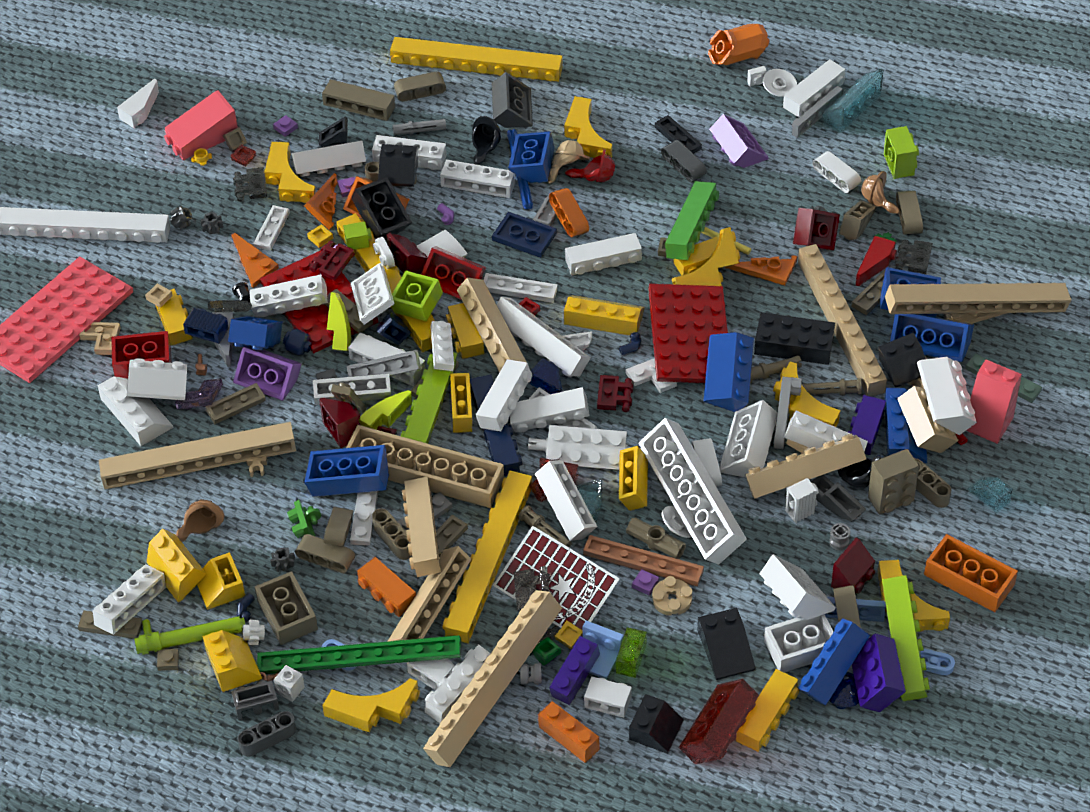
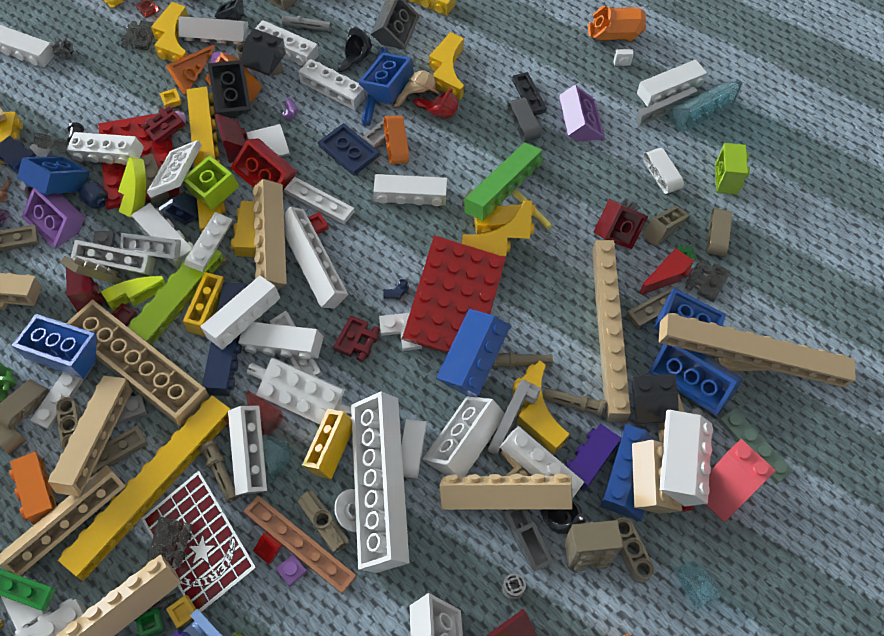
camera: 15 degrees right, 10 degrees up
(211, 223) = (86, 60): dark grey gear -> none
(254, 261) = (103, 106): orange wing -> none
(271, 228) = (136, 79): white tile -> none
(357, 235) = (192, 108): lime brick -> none
(386, 257) = (207, 136): white plate -> none
(546, 377) = (300, 302): clear blue slope -> none
(580, 340) = (348, 272): white plate -> none
(602, 315) = (383, 250): yellow slope -> none
(619, 569) = (267, 547): none -> red tile
(672, 586) = (305, 611): tan plate -> none
(769, 269) = (560, 251): orange wing -> none
(779, 82) = (641, 68): white dish -> none
(794, 336) = (555, 334): black brick -> none
(801, 500) = (488, 530): white brick -> none
(873, 191) = (691, 202): medium nougat piece -> none

